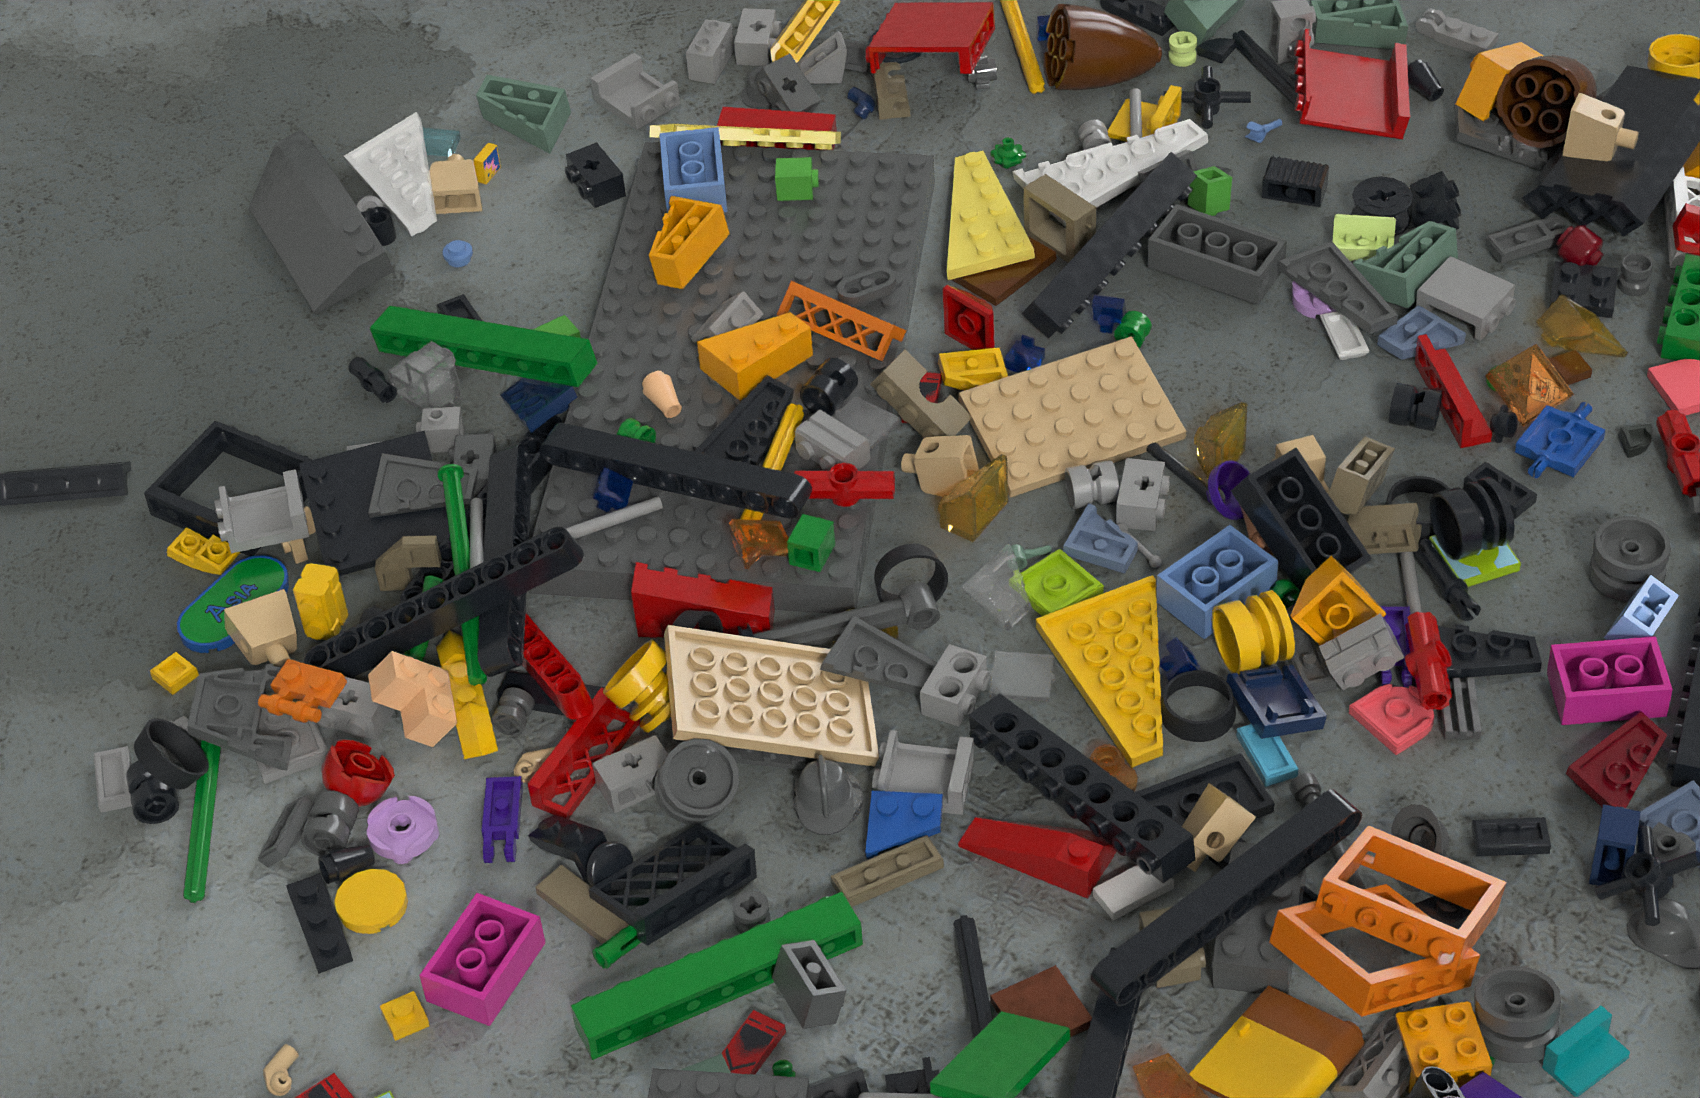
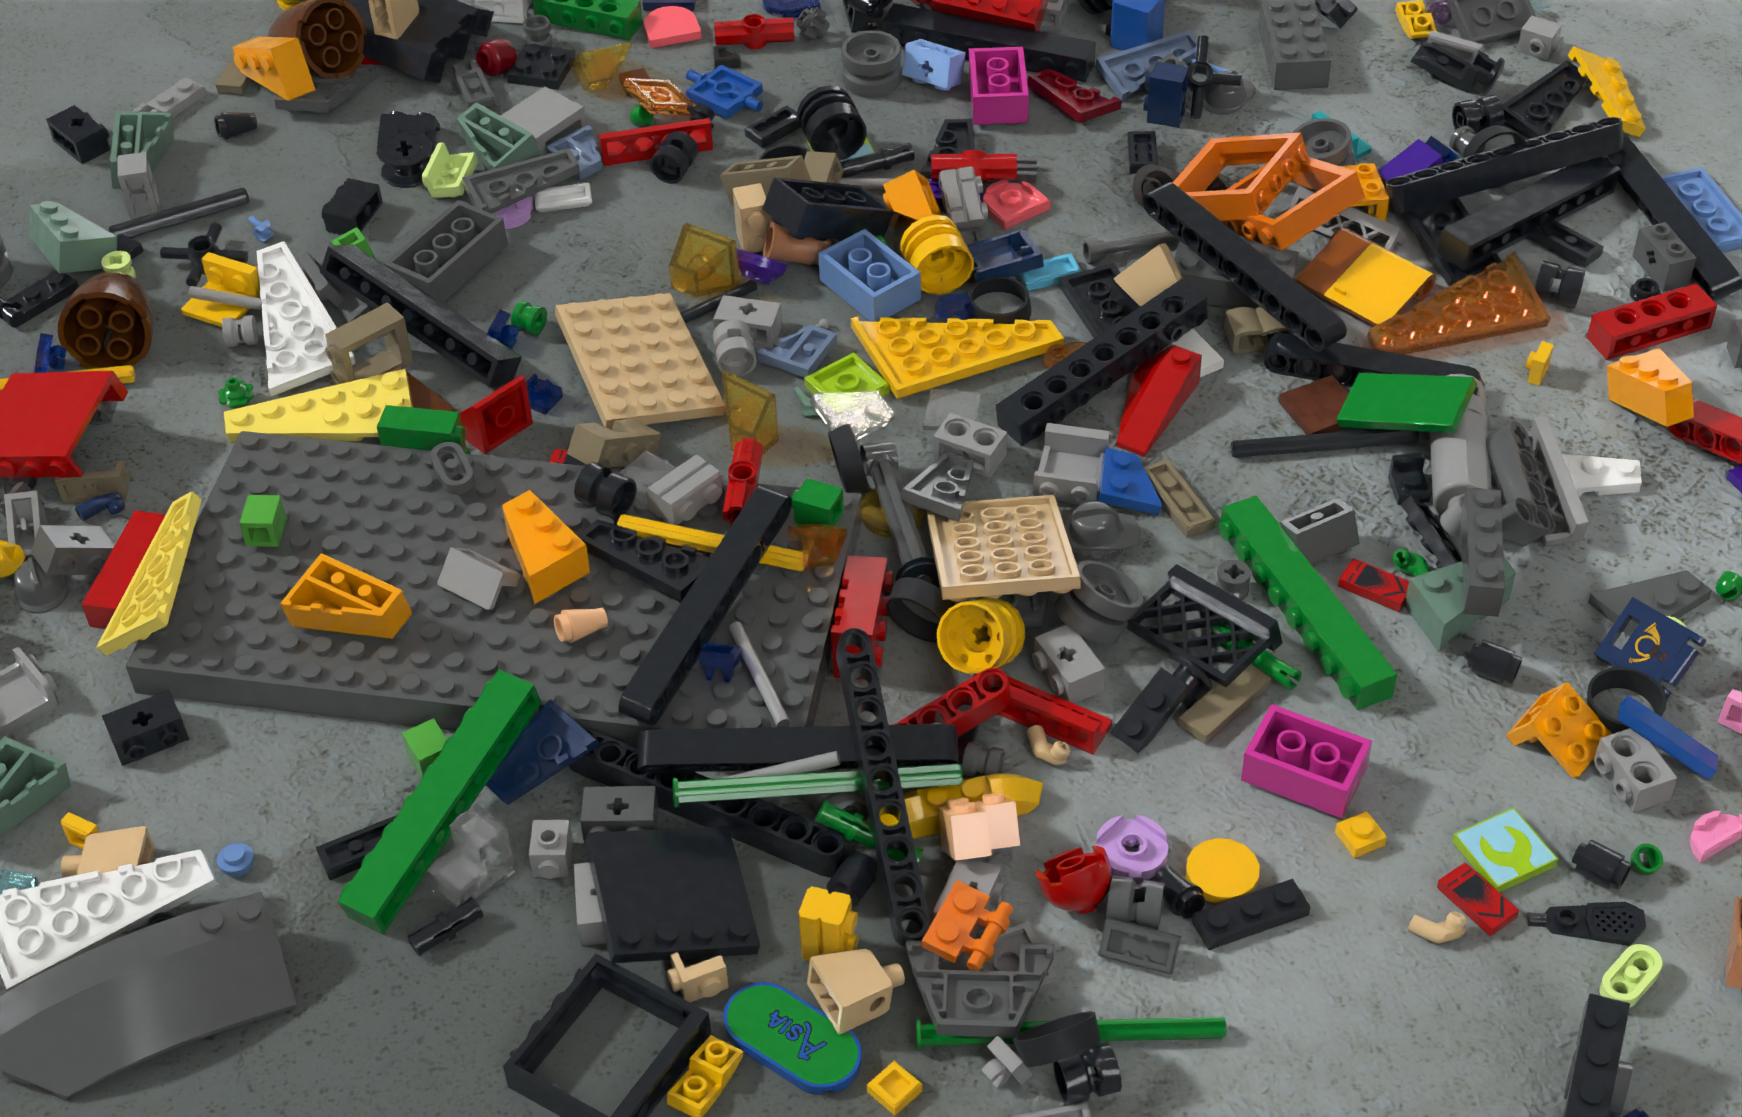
camera: 90 degrees left, 0 degrees up
(262, 516) = (689, 983): light grey panel -> none
(395, 565) = (775, 851): dark tan tile -> none
(413, 485) = (668, 842): dark grey wing -> none
(502, 815) = (1120, 767): dark purple hinge -> none
(633, 429) = (641, 640): green wheel -> none
(693, 166) = (230, 596): medium blue brick -> none
(848, 313) = (487, 483): orange fence -> none
(927, 274) = (420, 428): none -> green brick
(941, 463) = (698, 432): tan torso -> none
(971, 368) = (557, 421): yellow wing -> none
(1352, 90) = (234, 158): panel -> none

